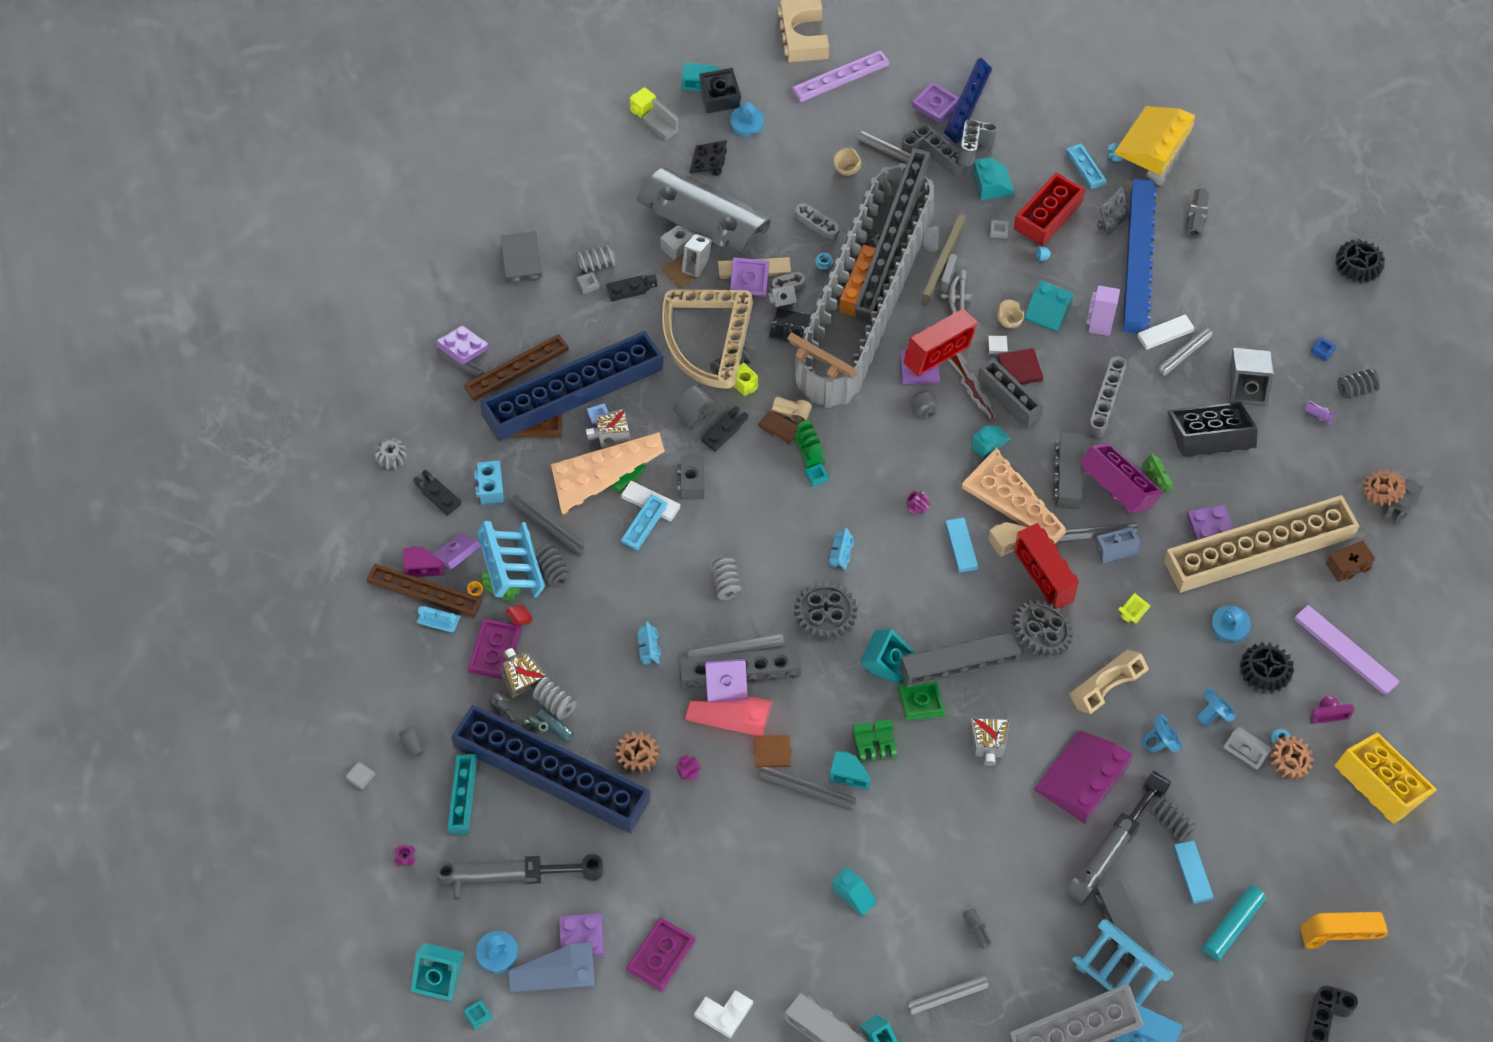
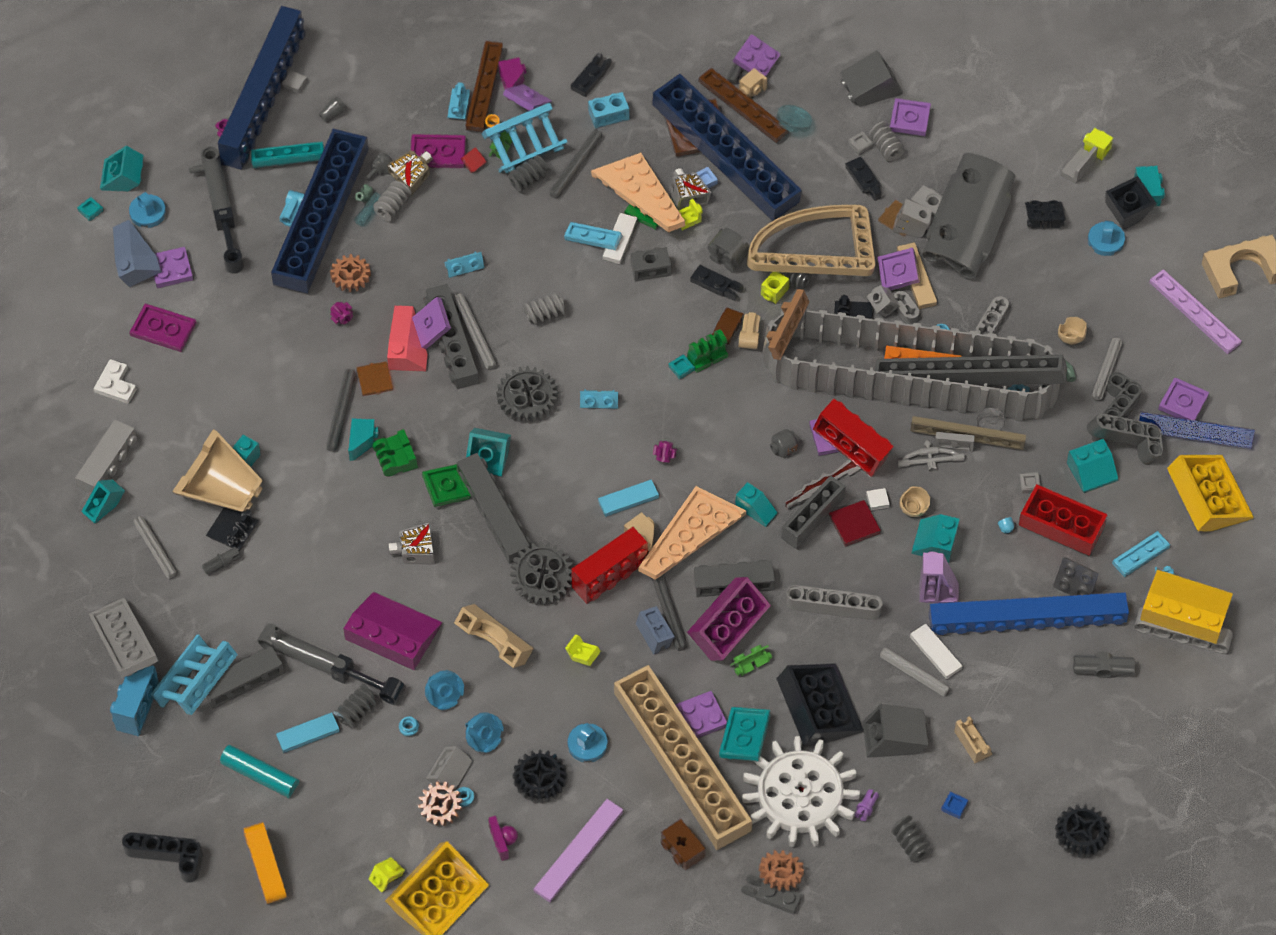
camera: 80 degrees right, 0 degrees up
(367, 803) = (261, 88): none -> dark blue brick
(390, 453) = (622, 30): light grey gear -> none
(493, 353) = (753, 83): none -> tan brick
(531, 795) = (292, 203): none -> medium azure piece
(547, 327) = (794, 118): none -> clear light blue tile
(570, 236) = (910, 117): none -> medium lavender plate
(639, 429) = (691, 214): none -> neon yellow bracket
(878, 916) = (220, 477): none -> tan cone
(936, 913) = (232, 527): none -> black hinge
(1034, 105) = (1209, 491): none -> yellow slope
(1196, 771) = (408, 721): none -> medium azure plate
(1240, 490) = (745, 733): none -> teal tile
(1262, 323) = (972, 740): none -> tan hinge
(1303, 459) = (788, 793): none -> white gear
(1362, 818) = (385, 873): none -> neon yellow bracket

